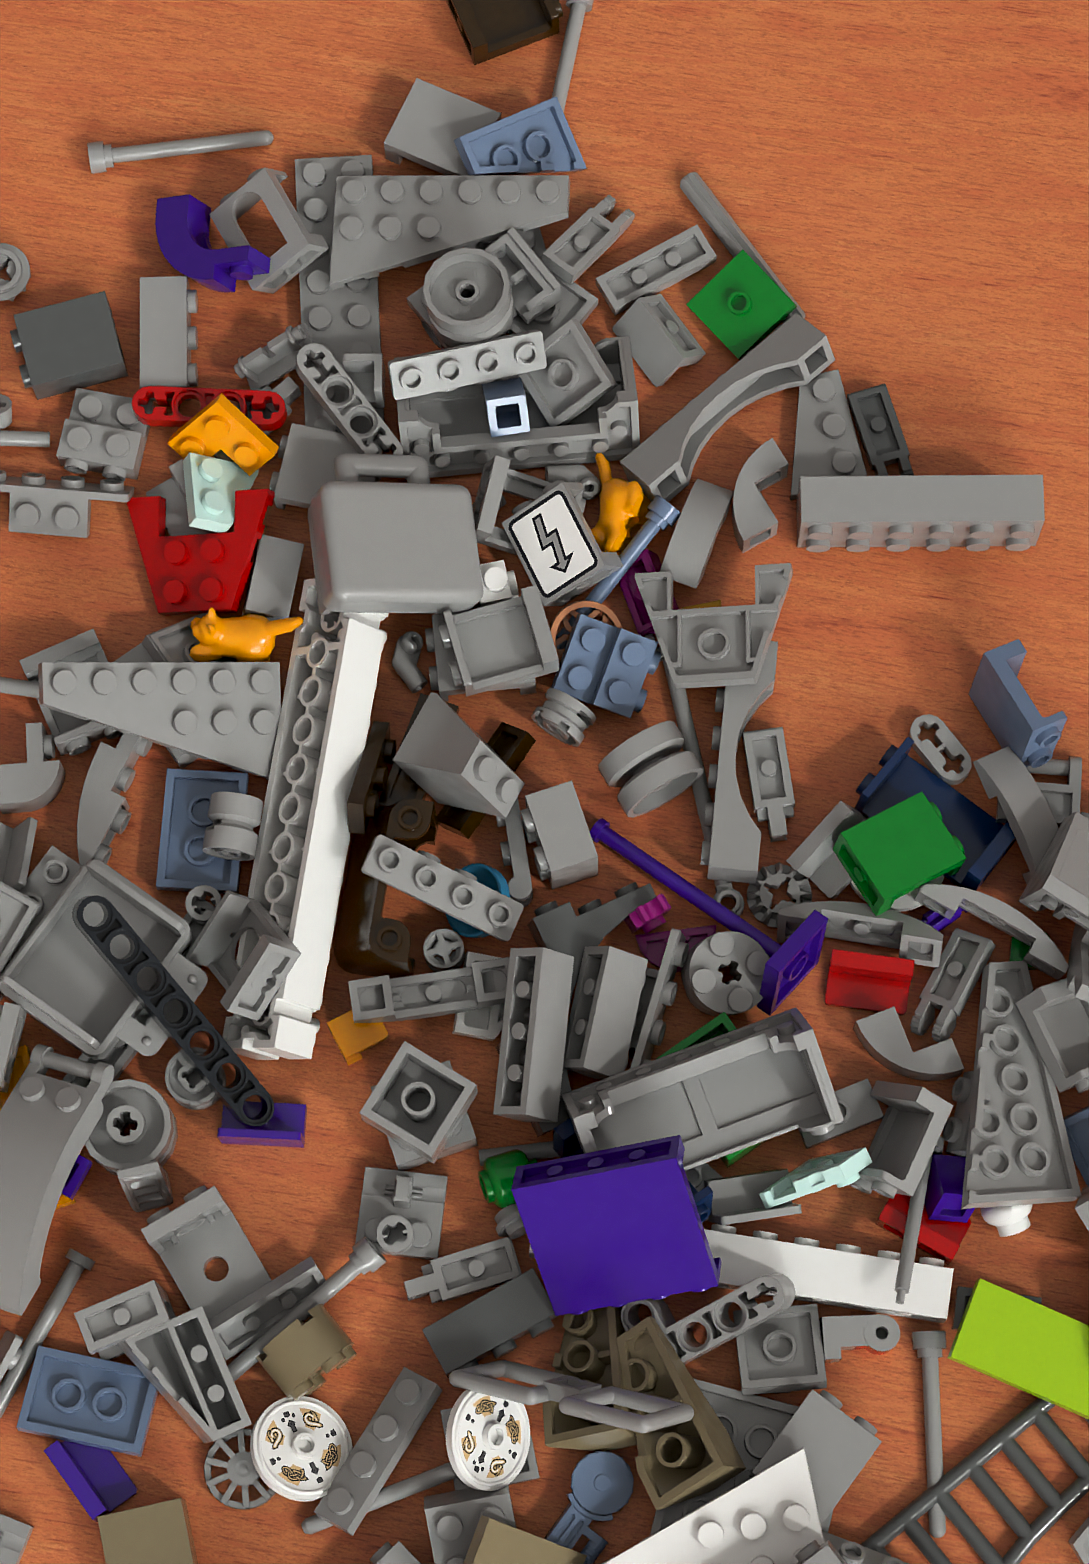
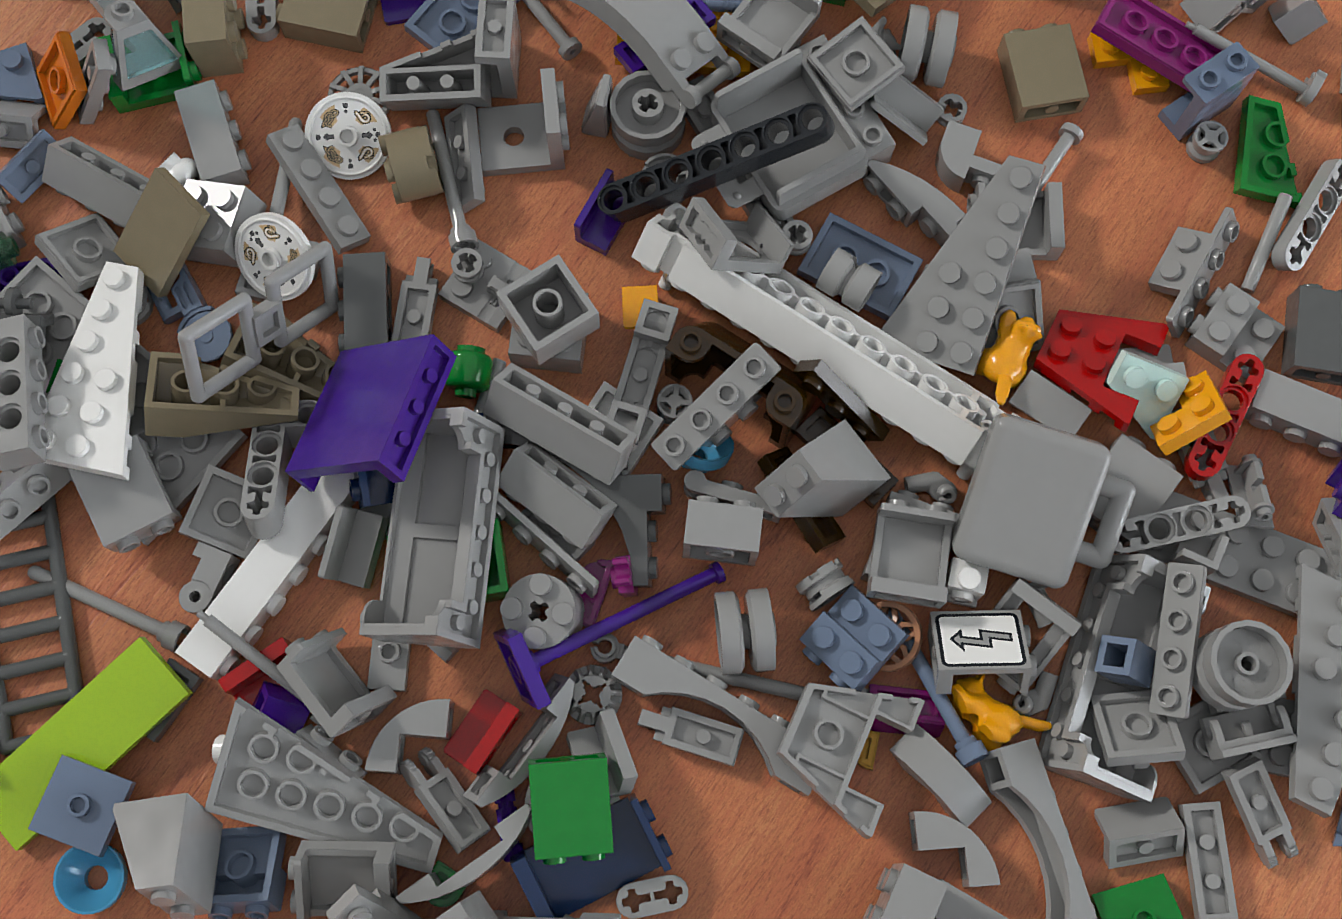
camera: 110 degrees right, 0 degrees up
(817, 1175) = (338, 602): light aqua wing -> none

